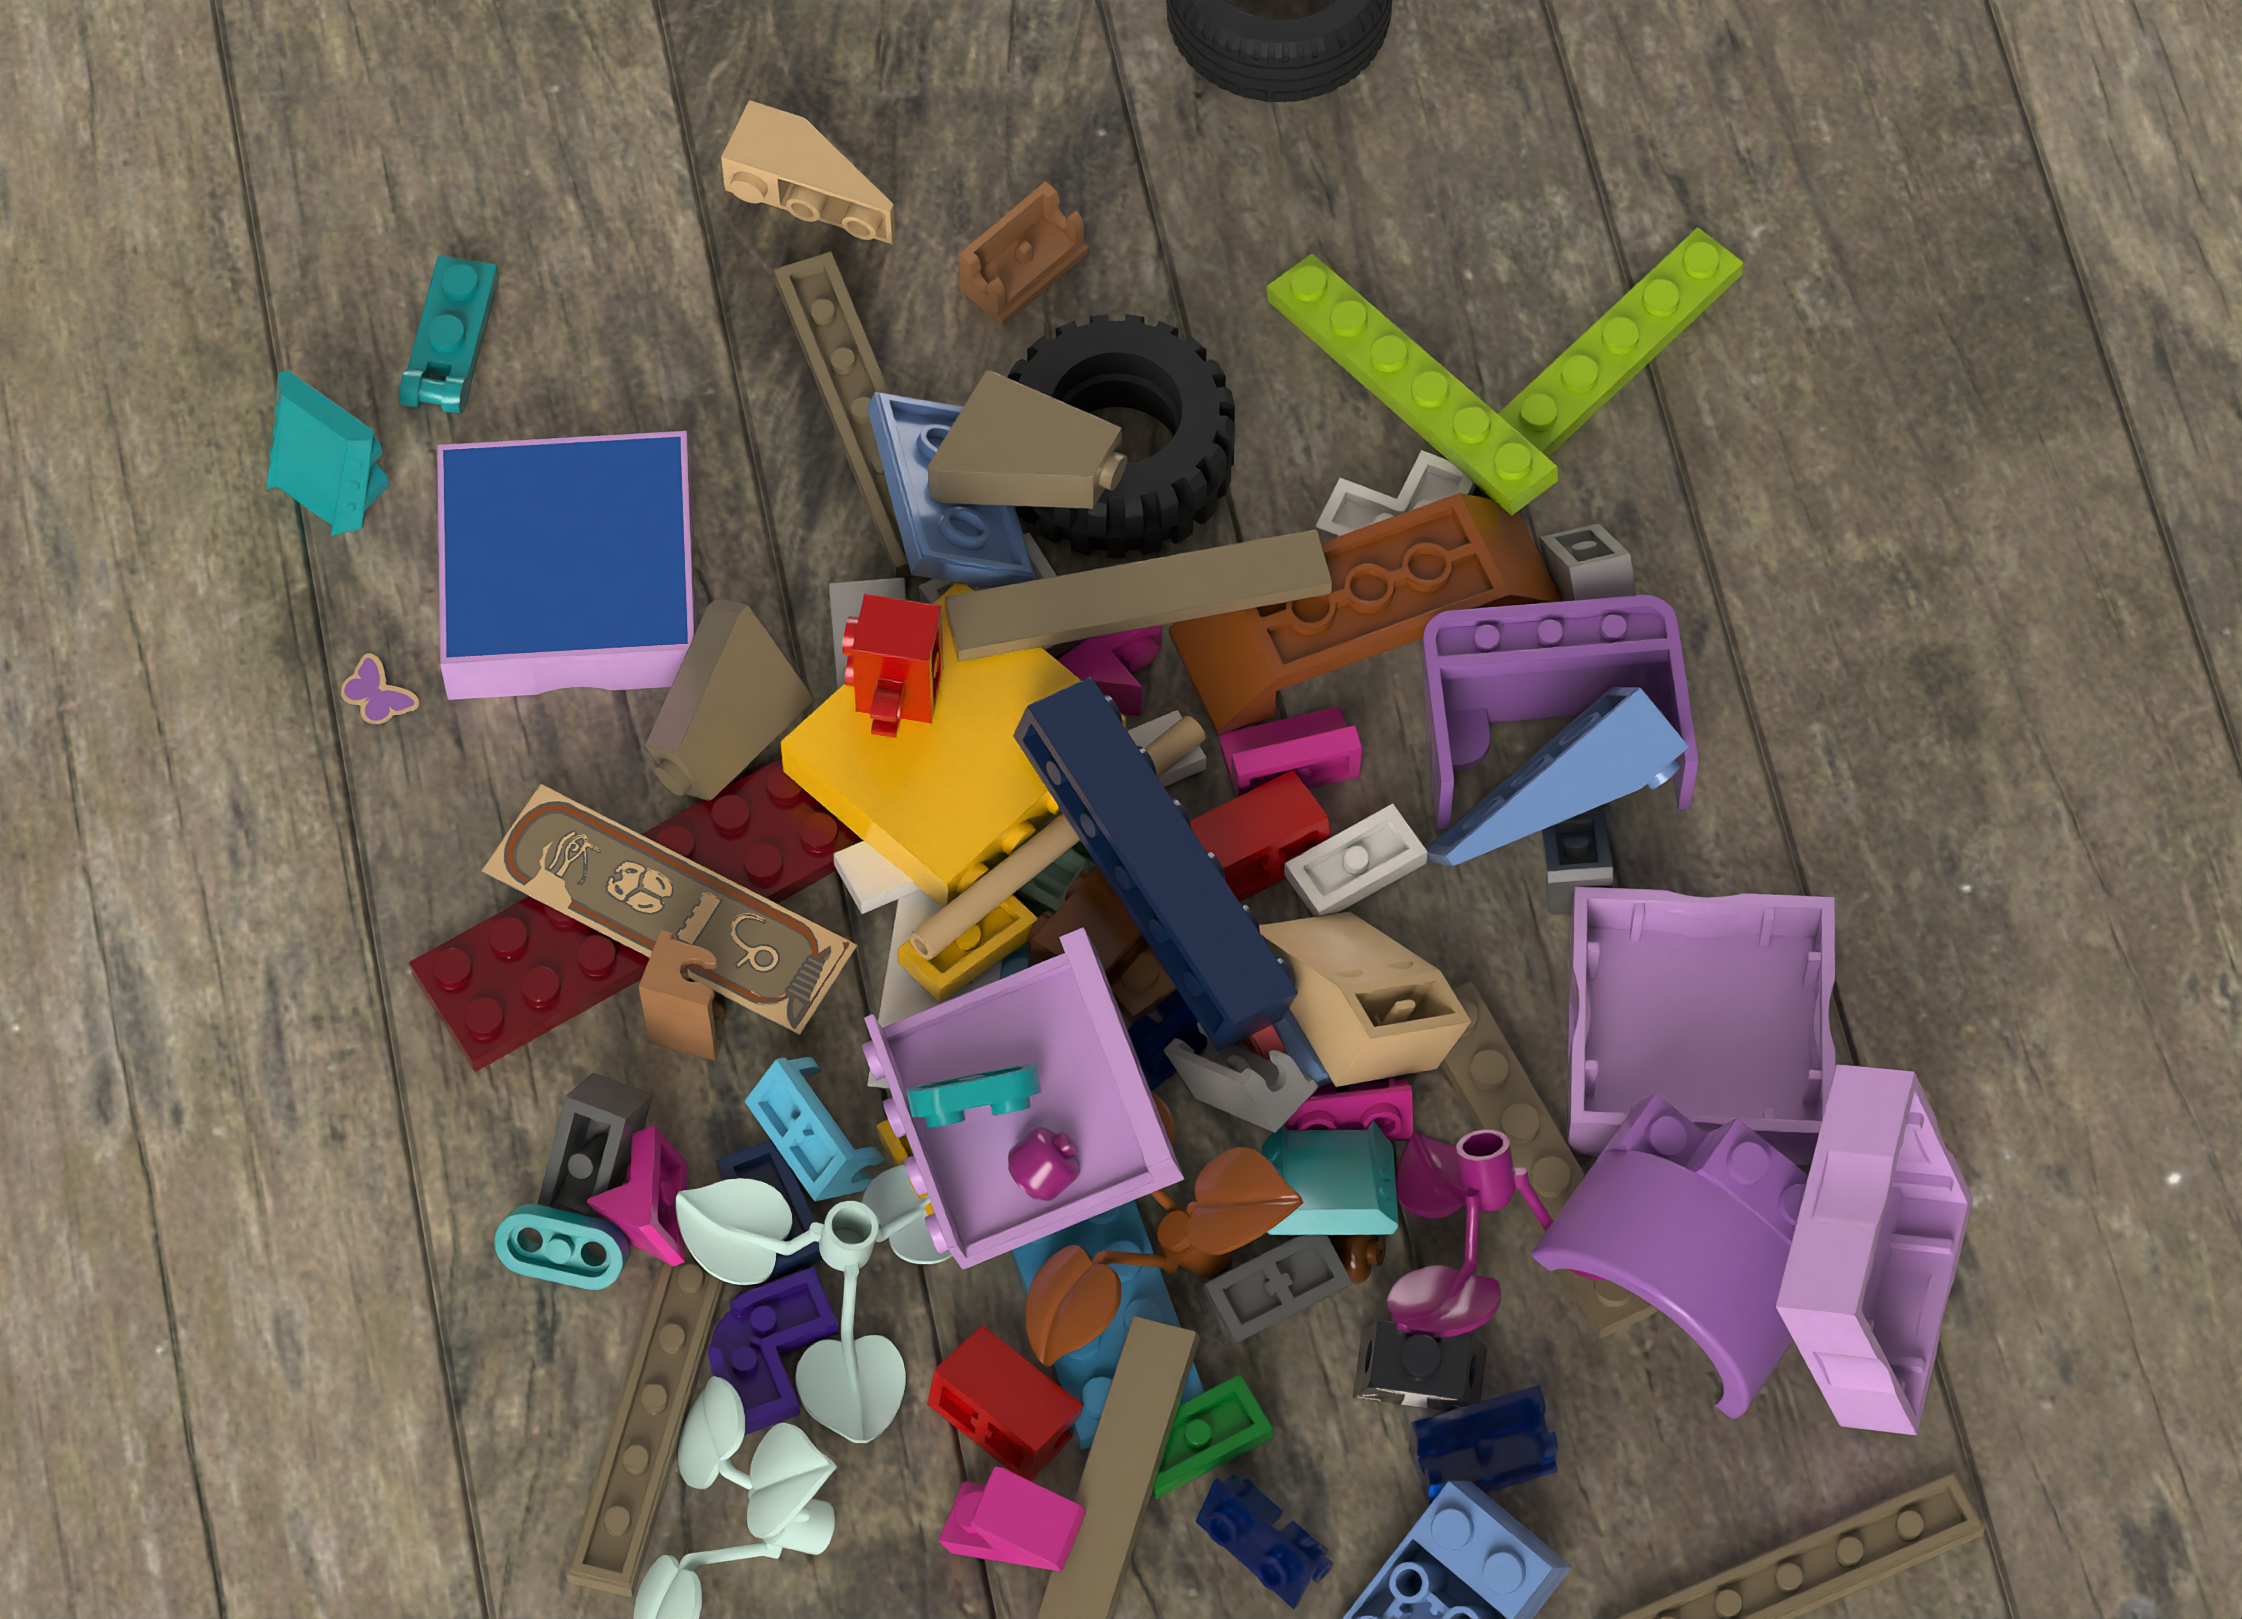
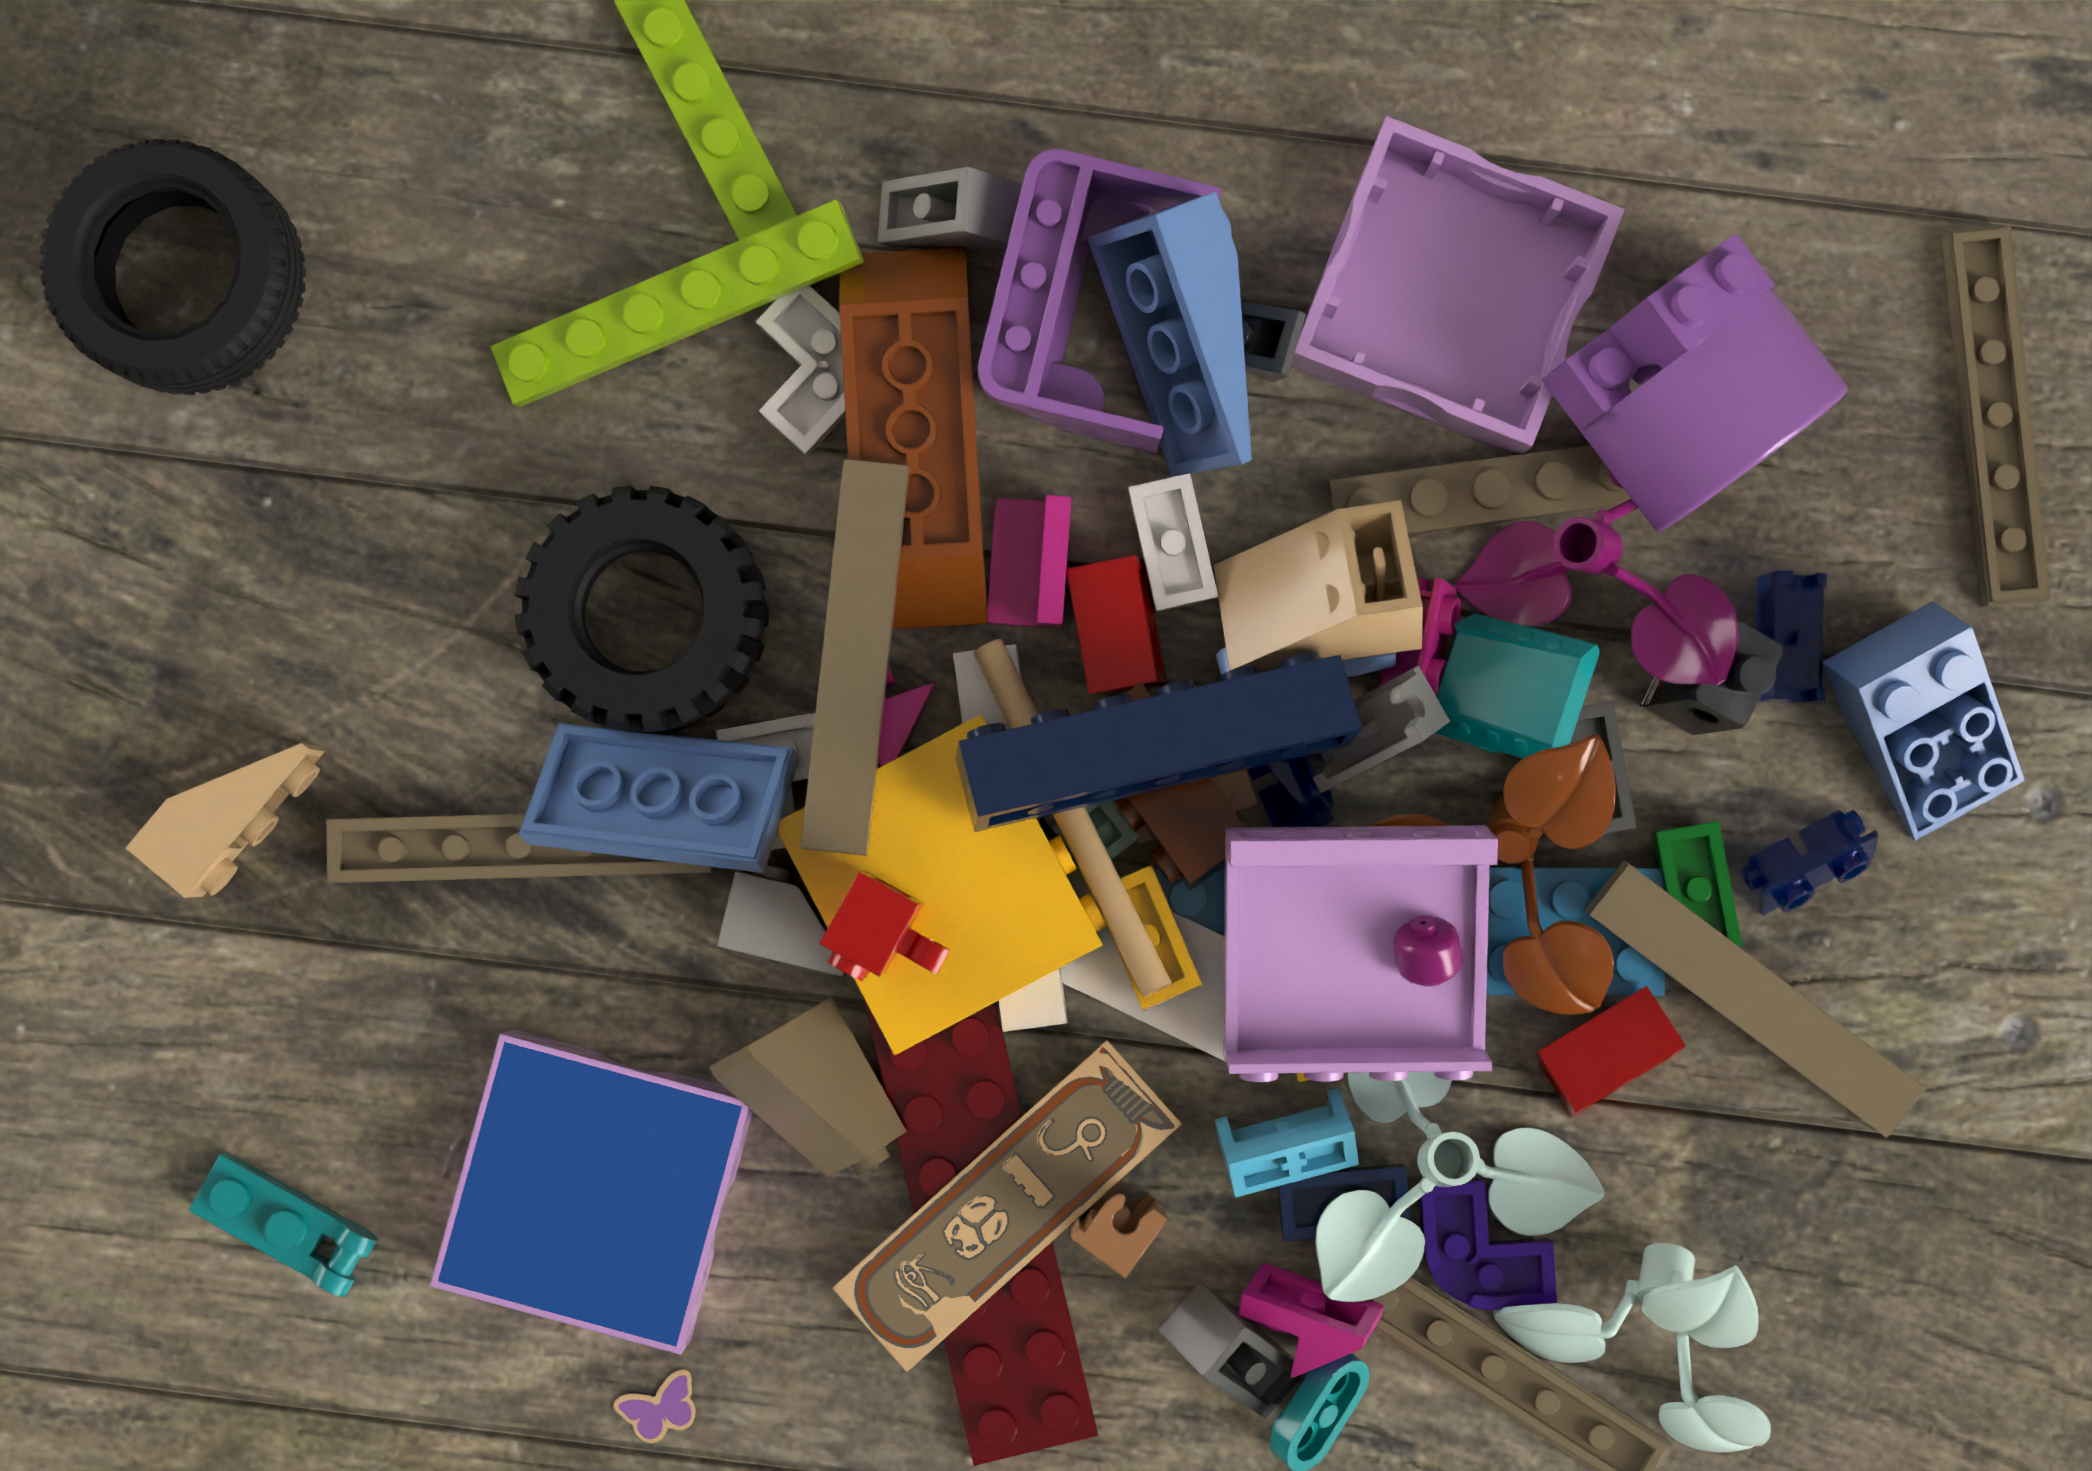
camera: 75 degrees left, 25 degrees up
(323, 456) = (396, 1398): teal slope -> none
(1003, 1089) = (1342, 995): teal plate -> none
(1012, 1522) = (1737, 1088): dark pink slope -> none
(1021, 255) = (394, 630): medium nougat hinge -> none
(1025, 451) = (667, 716): dark tan slope -> none
(1875, 1249) = (1792, 224): lavender tile -> none

